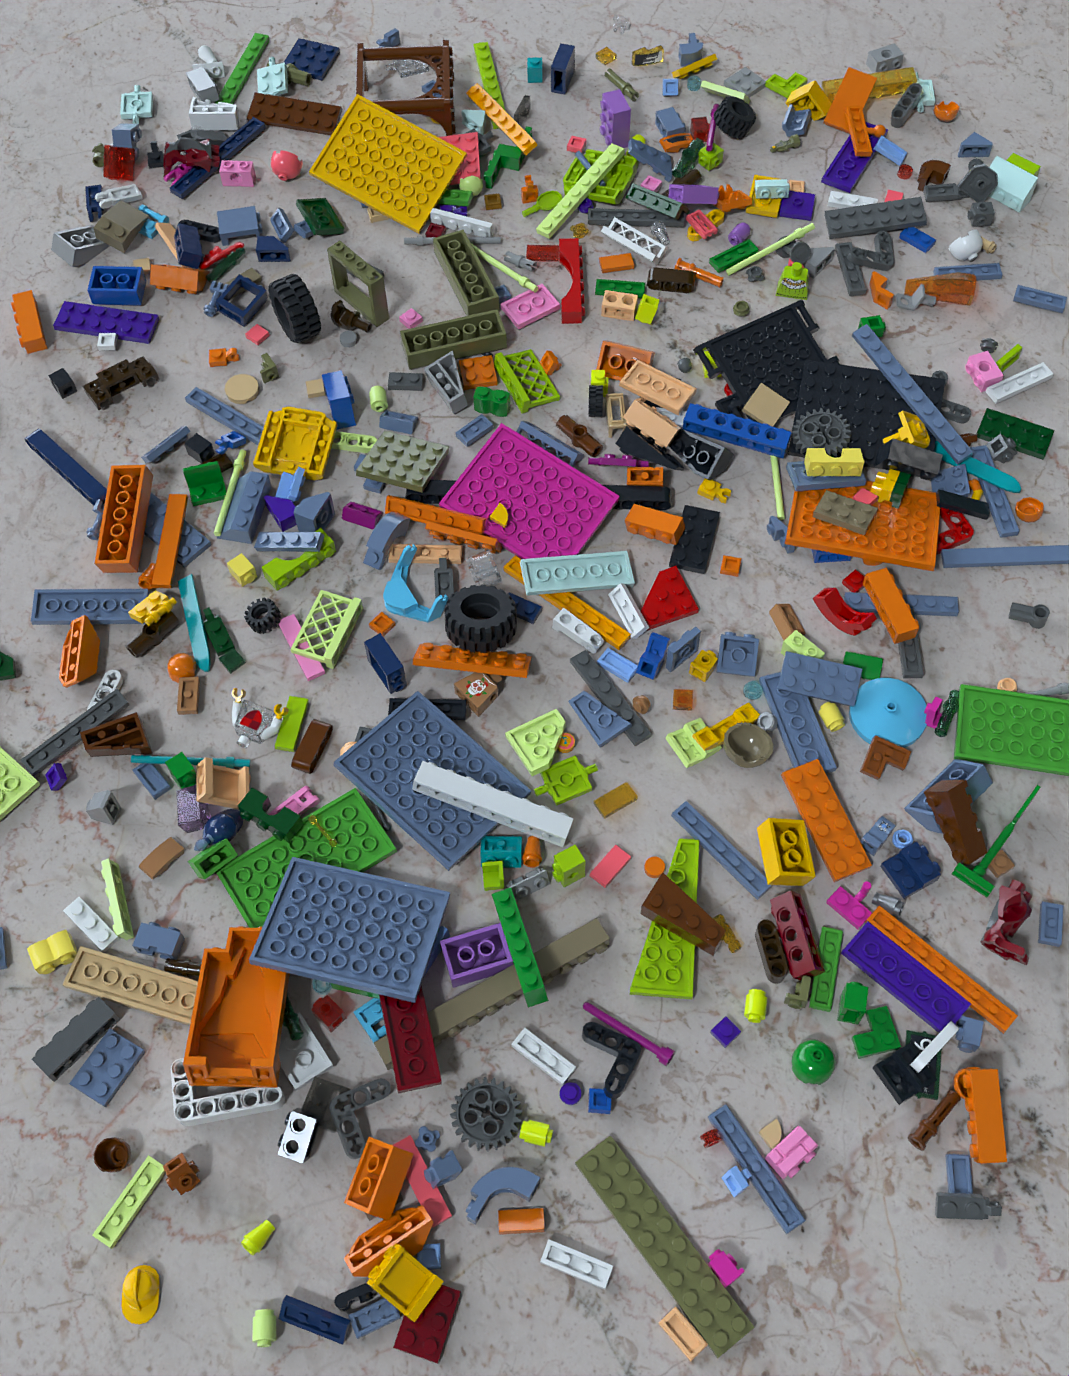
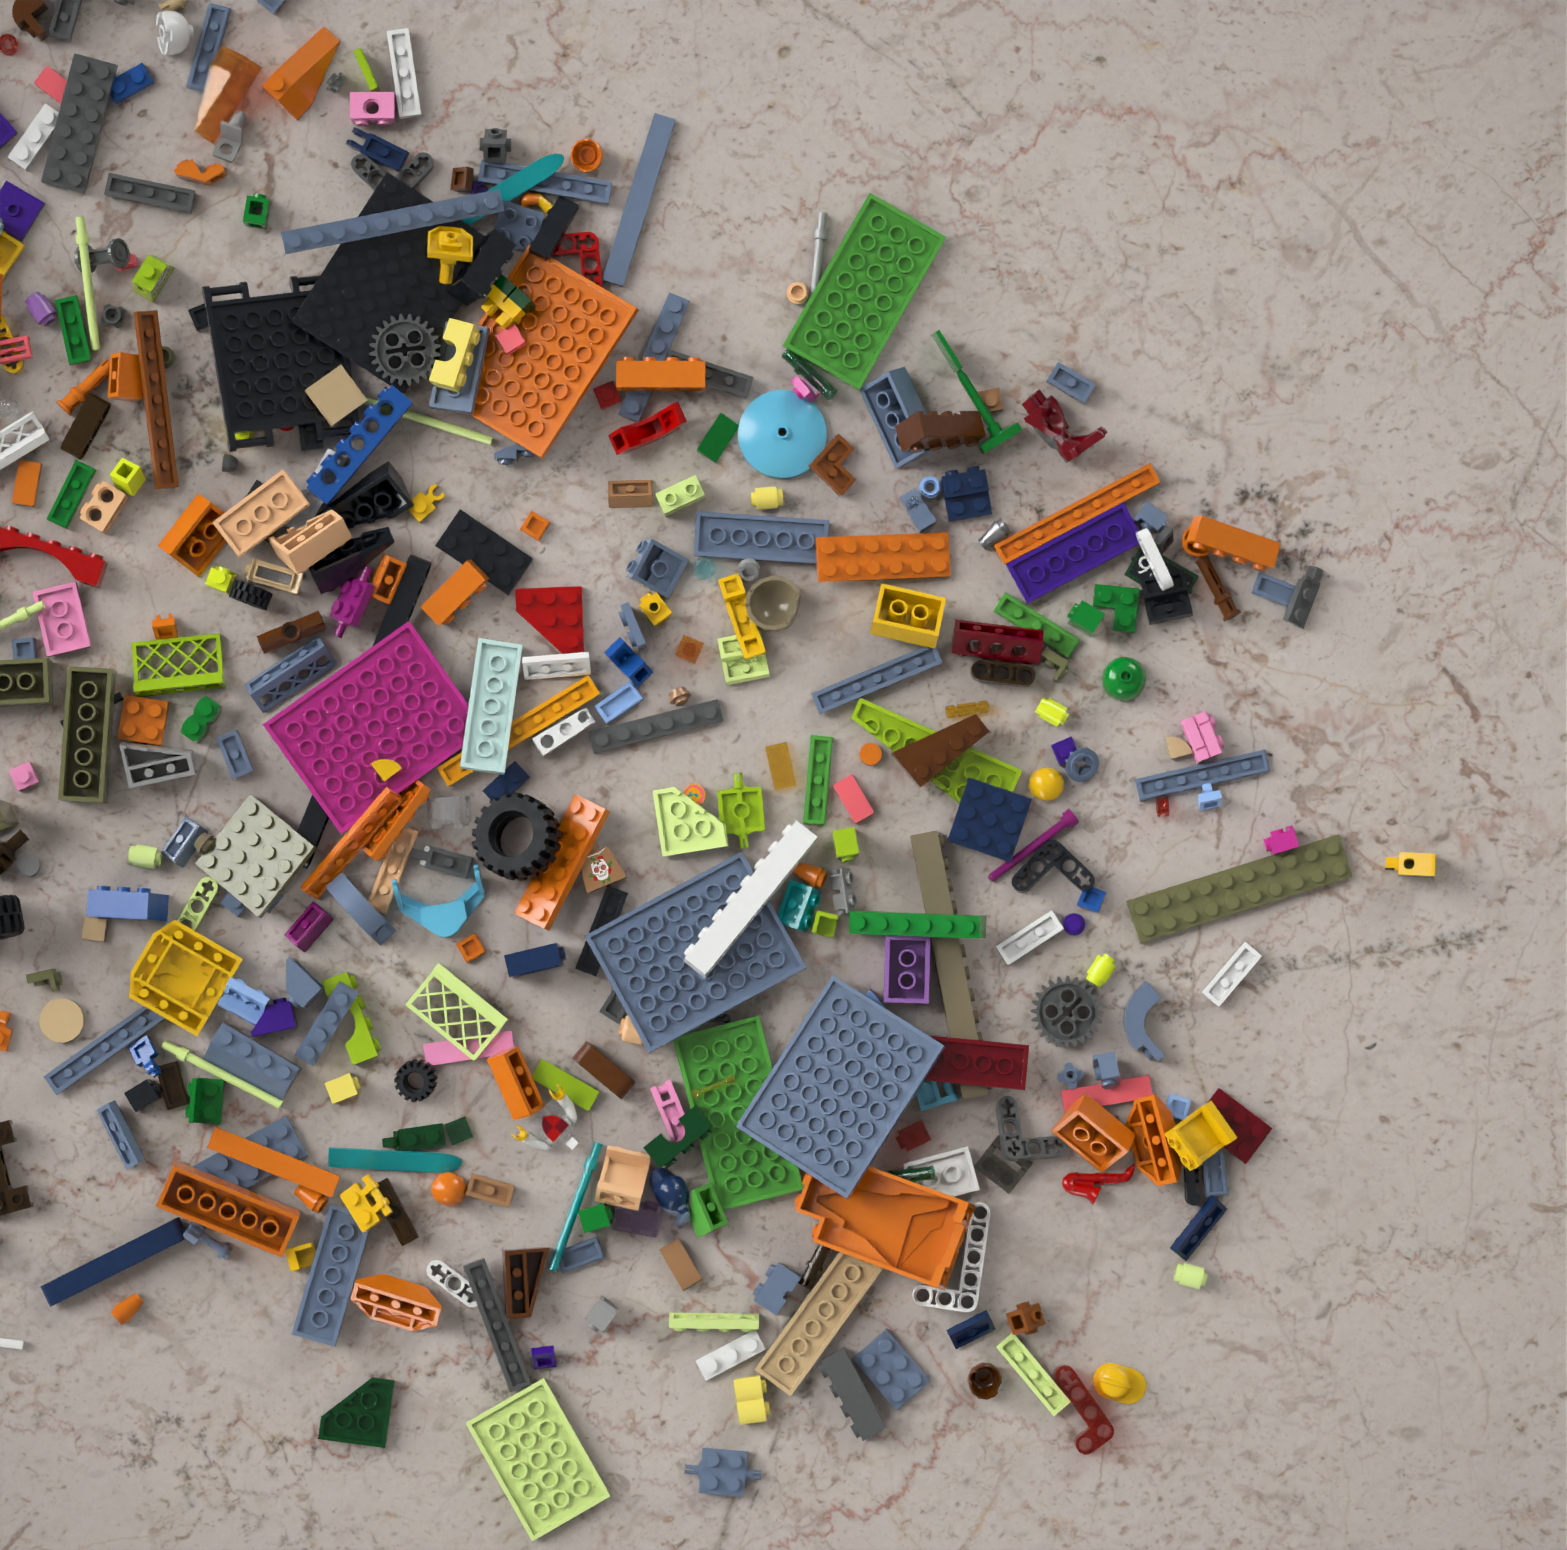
camera: 75 degrees left, 25 degrees up
(33, 486) = (127, 1308): none -> orange cone
(99, 579) = (301, 1256): none -> yellow panel
(107, 1258) = (1080, 1405): none -> clear red beam
(160, 1126) = (971, 1329): none -> dark blue plate
(256, 1239) = (1107, 1261): neon yellow cone -> none
(280, 681) = (515, 1083): none -> orange brick
(304, 1137) = (1028, 1195): brick -> none
(327, 1188) = (1083, 1184): none -> red piece
(401, 429) = (203, 843): none -> dark tan plate
(405, 381) = (124, 814): dark grey plate -> none
(521, 1221) = (1175, 1011): orange slope -> none
(598, 719) = (680, 750): sand blue wing -> none
(615, 833) = (817, 780): none -> bright green tile
(636, 982) = (989, 820): none -> dark blue plate
(683, 1334) = (1321, 900): light nougat tile -> none
(689, 1025) = (1046, 784): none -> yellow hair
(709, 308) = (156, 399): none -> dark orange plate
(712, 1055) = (1084, 772): none -> sand blue gear
(716, 289) = (125, 377): none -> orange brick
(818, 260) = (122, 228): light grey slope -> none
(819, 679) = (724, 494): sand blue plate -> none
(845, 512) = (525, 372): dark tan plate -> none
(849, 906) = (982, 573): dark pink plate -> none
(859, 256) = (146, 150): dark grey beam -> none
(954, 1051) = (1164, 539): none -> dark grey tile
(956, 385) = (379, 150): none -> dark blue hinge
(978, 323) = (300, 76): none -> orange wedge
(1028, 436) = (471, 114): dark green plate -> none
(1030, 614) = (718, 228): dark grey piece -> none

